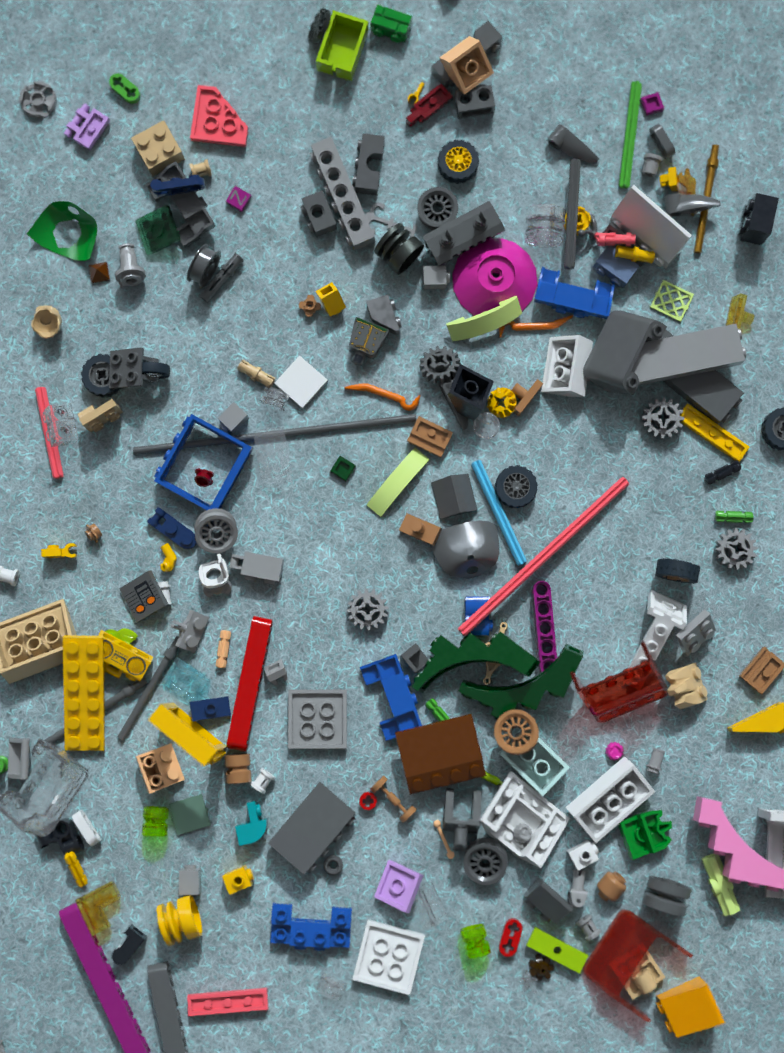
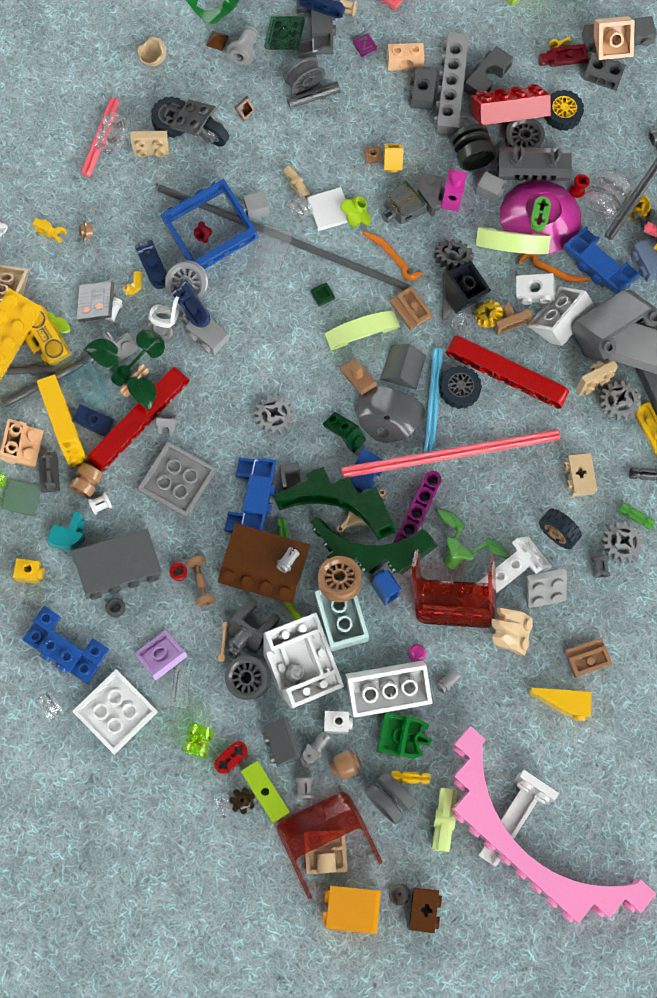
camera: 25 degrees right, 10 degrees down
(166, 328) = (245, 108): none -> slope
(189, 651) = (105, 354): none -> dark green plant
(200, 779) = (48, 473): none -> dark grey hinge
(235, 553) = (192, 305): none -> dark blue plate
(284, 191) = (405, 56): none -> light nougat brick
(327, 372) = (356, 211): none -> lime plate
(404, 300) = (454, 186): none -> dark pink torso
(410, 187) = (510, 104): none -> brick
(437, 587) = (346, 430): none -> dark green bracket
(462, 742) = (287, 560): none -> light grey pin
(501, 280) = (543, 214): none -> bright green beam
(514, 230) = (578, 188): none -> red bush
(520, 354) = (527, 283): none -> white brick
(549, 447) = (507, 371): none -> red beam
(557, 711) = (386, 586): none -> blue brick
(602, 648) = (457, 551): none -> bright green plant
(634, 404) = (600, 375): none -> tan plate
(671, 863) = (411, 777): none -> yellow axle
(675, 513) = (584, 465): none -> tan brick
(718, 969) = (399, 894): none -> dark grey tile
(728, 582) = (600, 566): none -> dark grey bush
(739, 962) = (420, 898): none -> reddish brown brick

